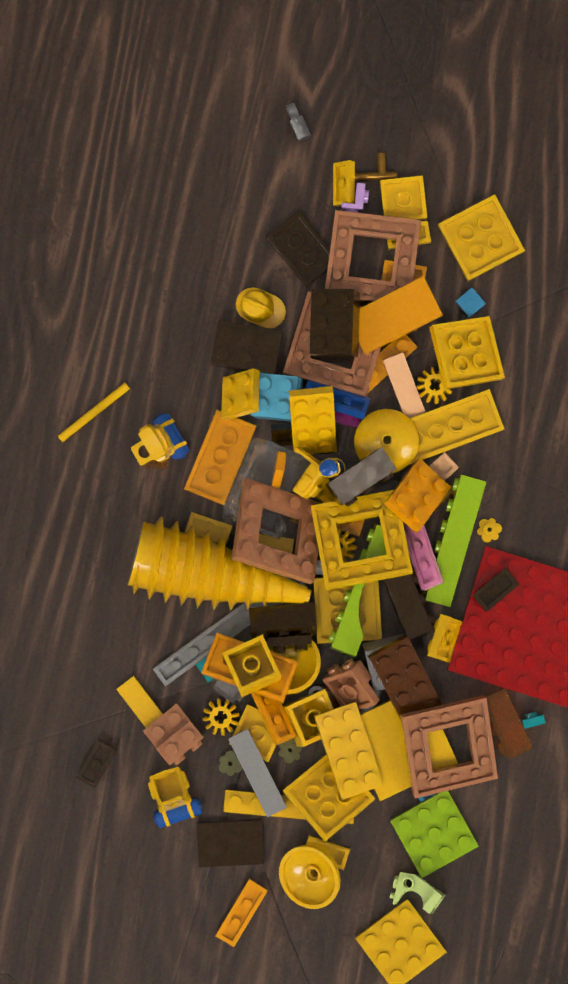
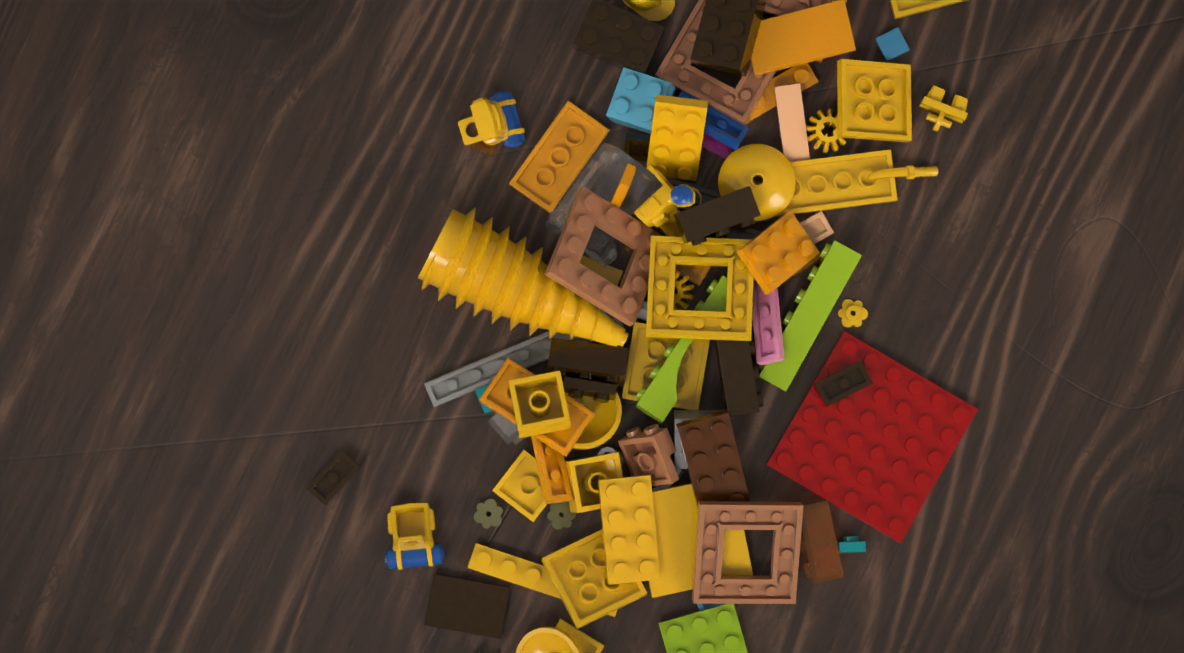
camera: 20 degrees right, 0 degrees up
(93, 412) = (424, 71): yellow bar -> none
(139, 701) = (409, 438): yellow tile -> none
(174, 735) = (431, 465): nougat plate -> none
(203, 524) = (534, 237): yellow plate -> none
(214, 712) = (495, 463): yellow gear -> none
(240, 394) = (599, 88): yellow plate -> none
(257, 772) = (517, 531): light grey tile -> none
(444, 638) = (770, 426): yellow plate -> none
(508, 403) = (908, 171): none -> yellow piece
(515, 343) = (933, 103): none -> yellow hips

